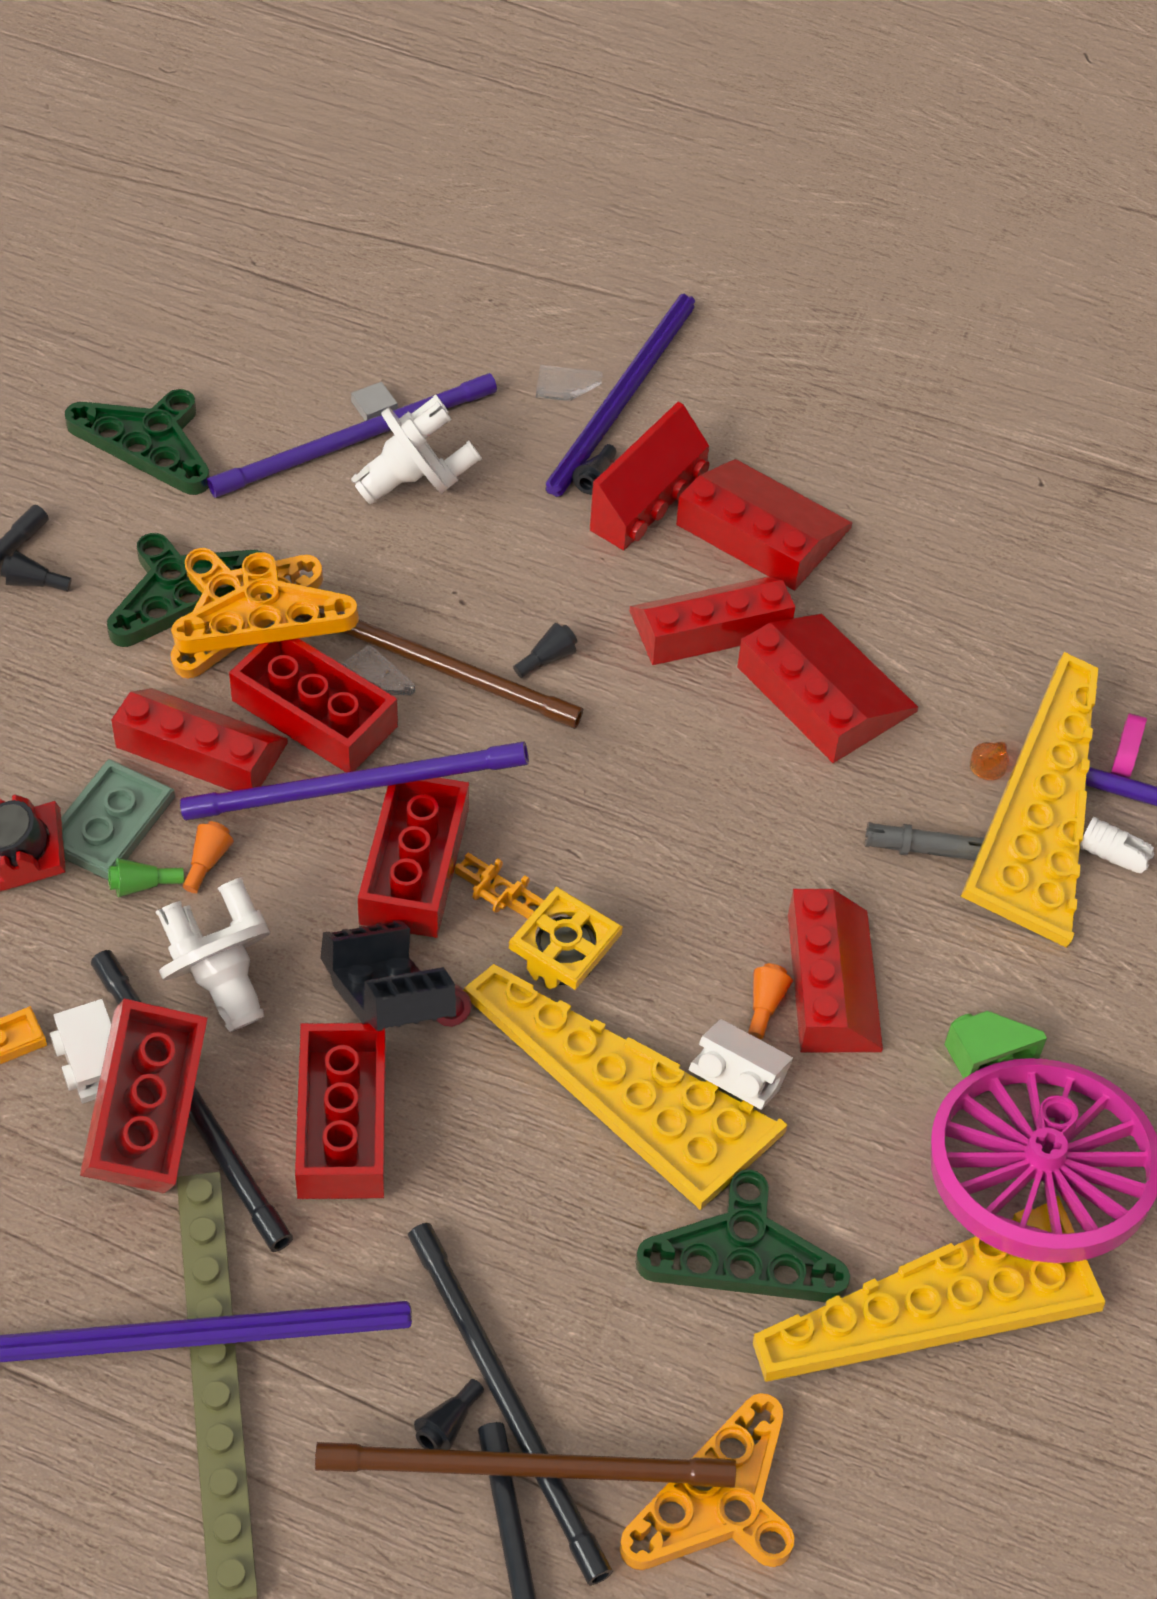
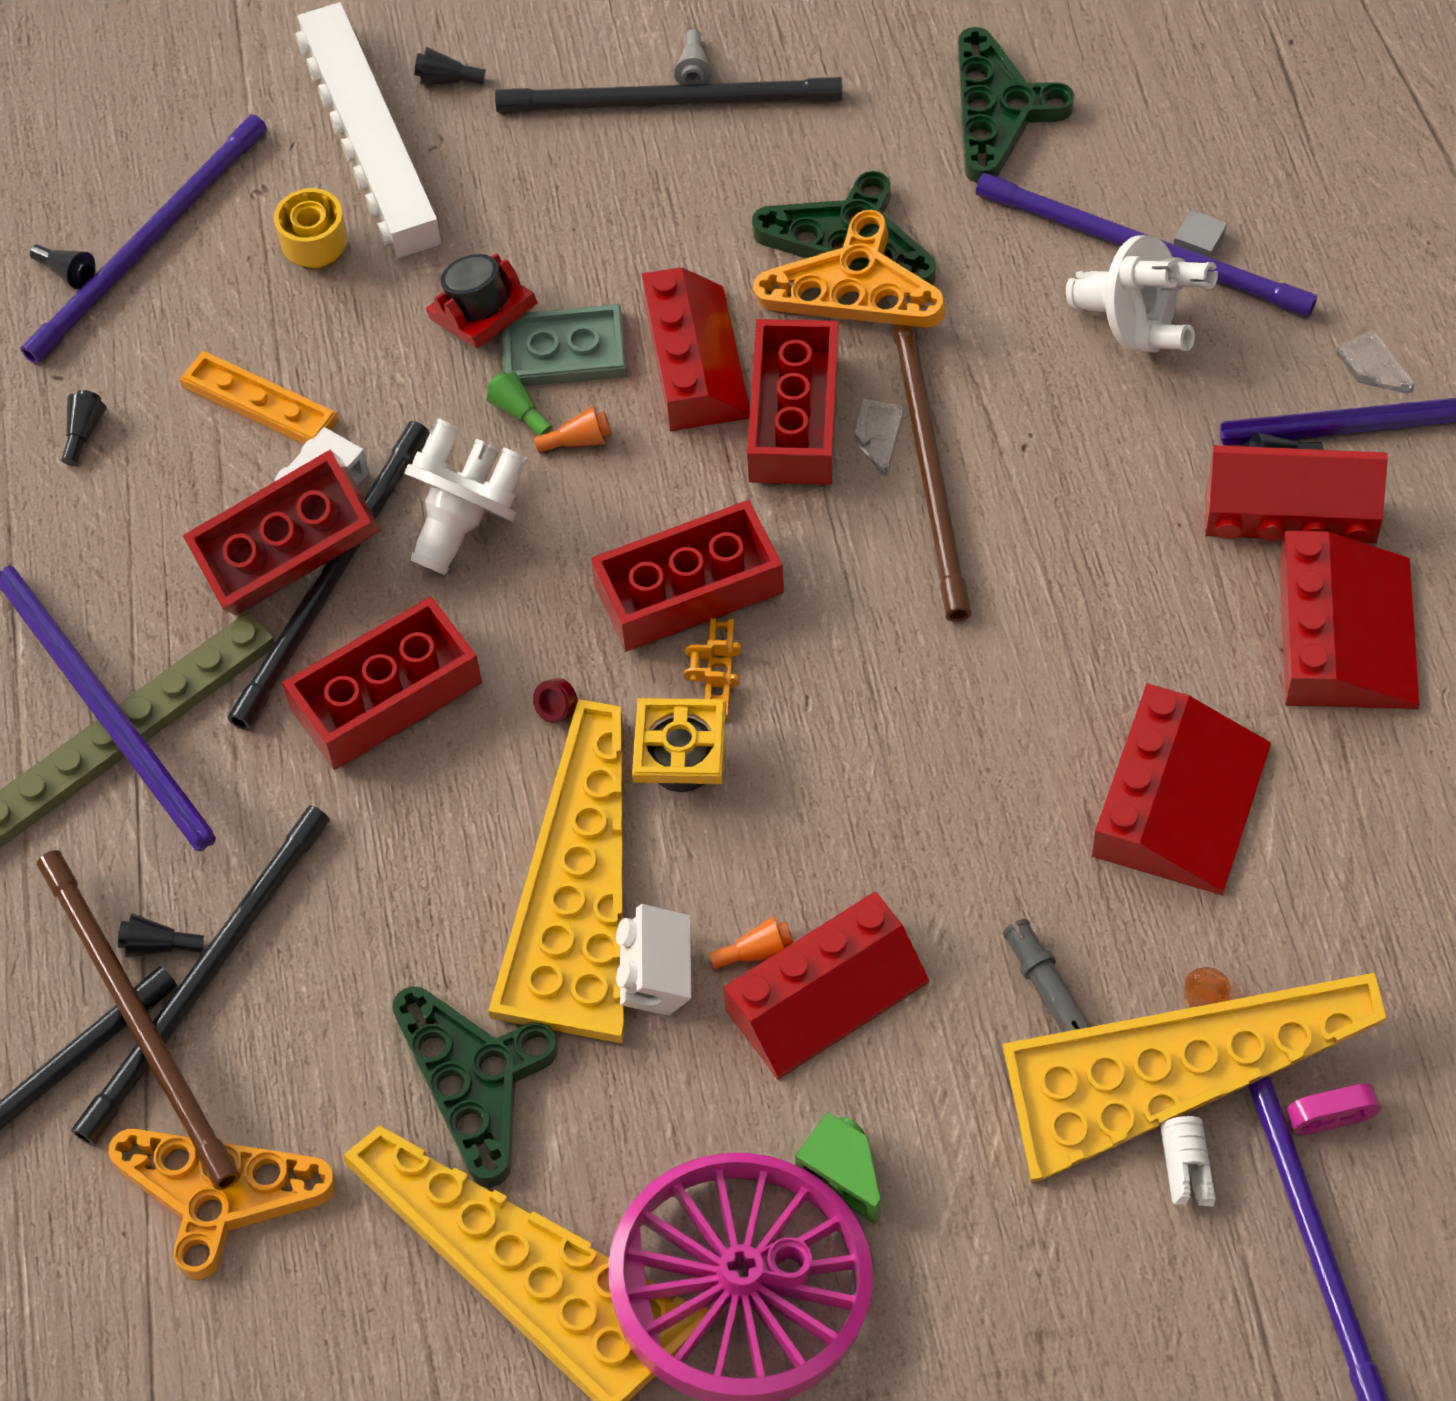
camera: 65 degrees right, 5 degrees up
(26, 572) = (765, 117): black cone -> none
(283, 607) = (829, 286): light orange beam -> none
(381, 981) = (528, 630): black plate -> none
(492, 758) = (795, 557): dark purple piece -> none
(554, 645) = (1024, 544): black cone -> none
(710, 618) = (1173, 648): red slope -> none

